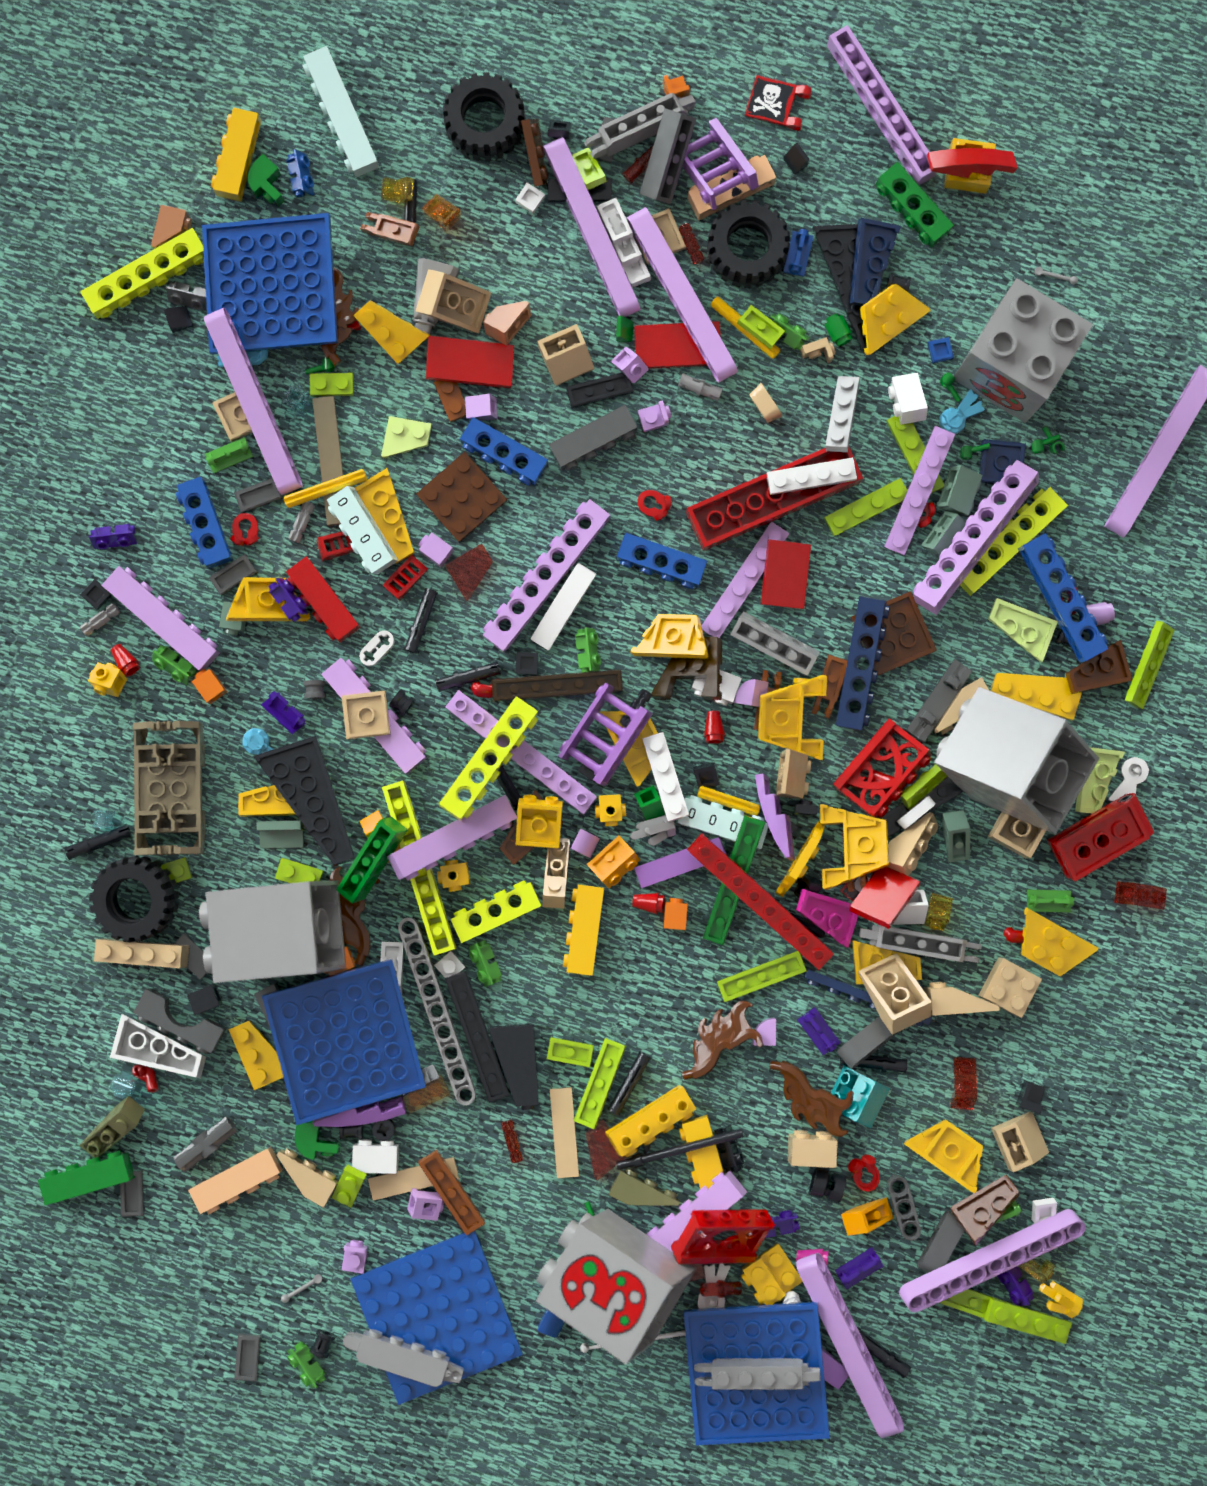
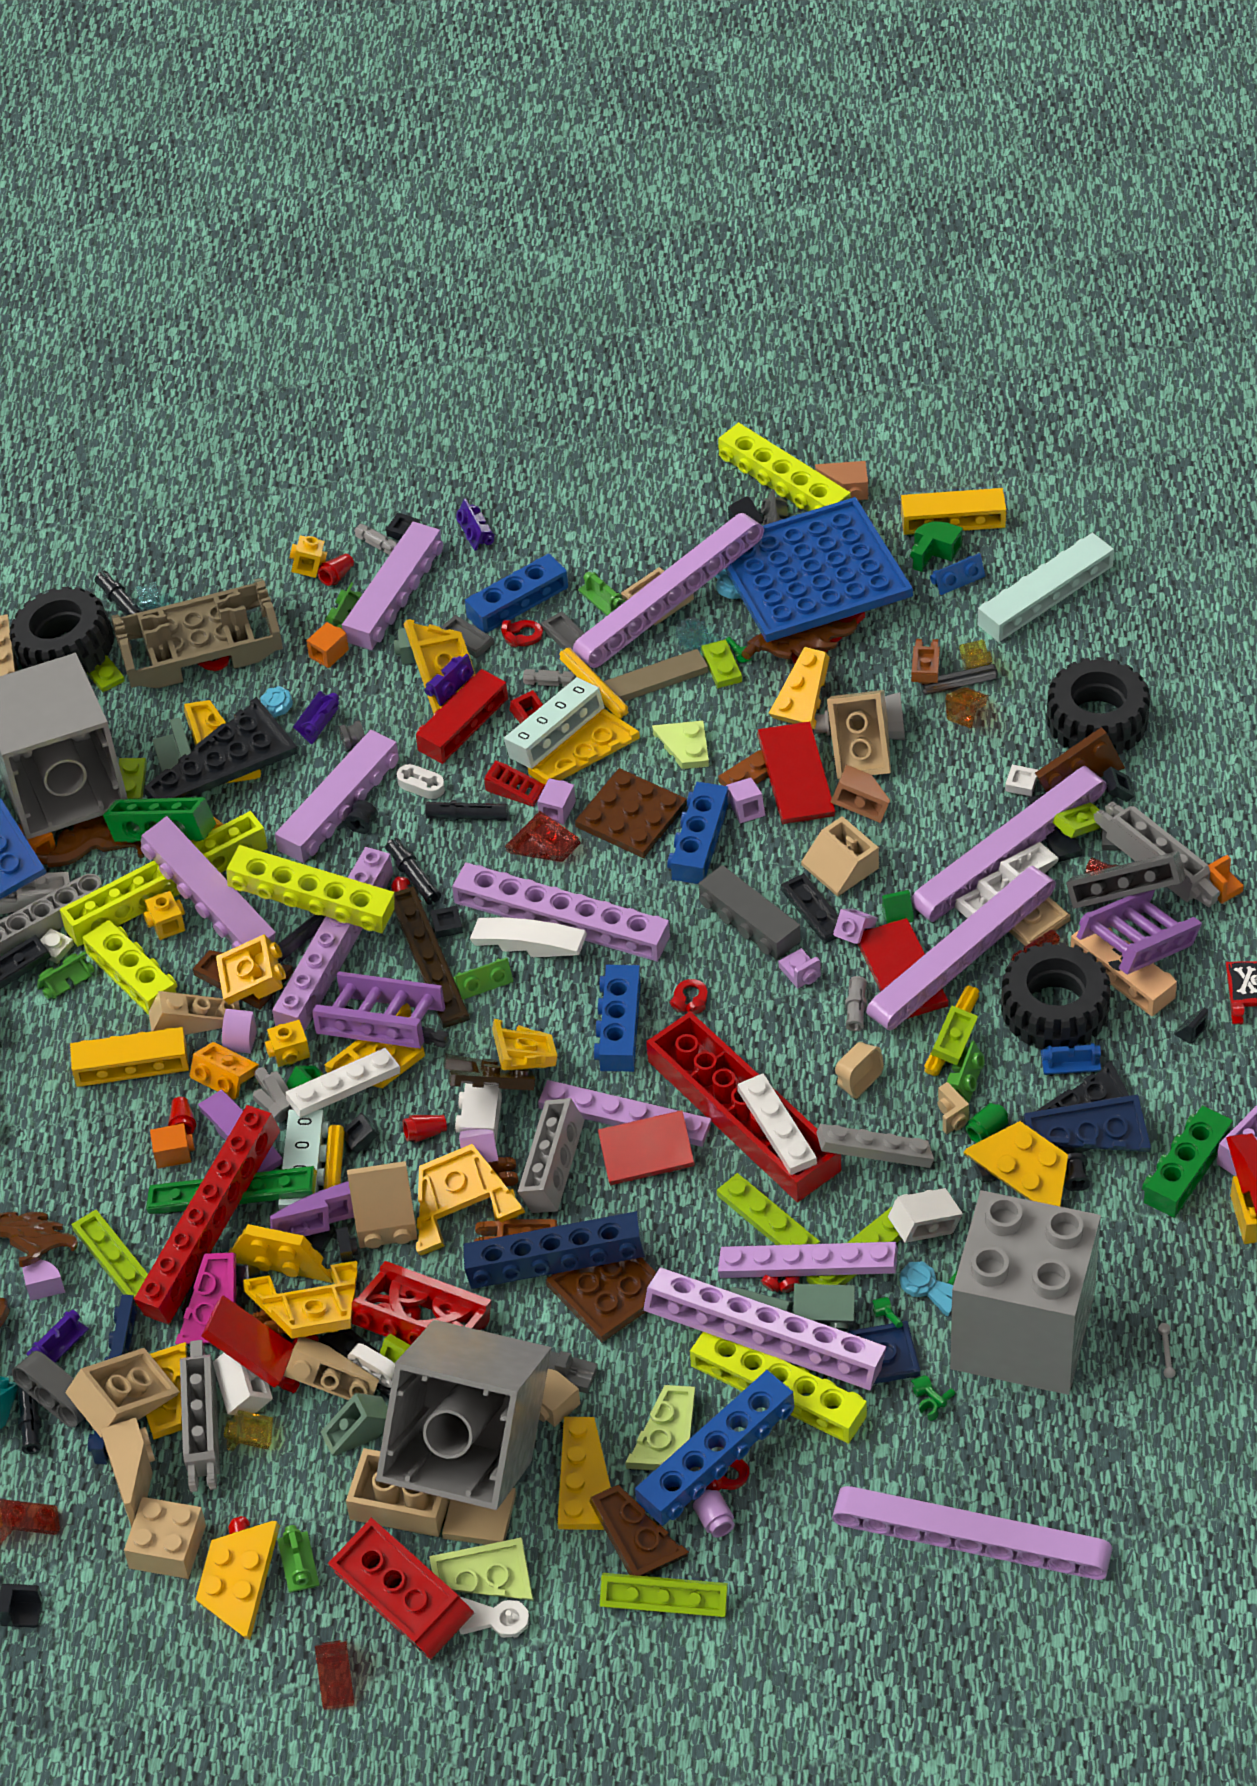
camera: 80 degrees right, 35 degrees down
(366, 715) = (333, 778): tan tile -> none

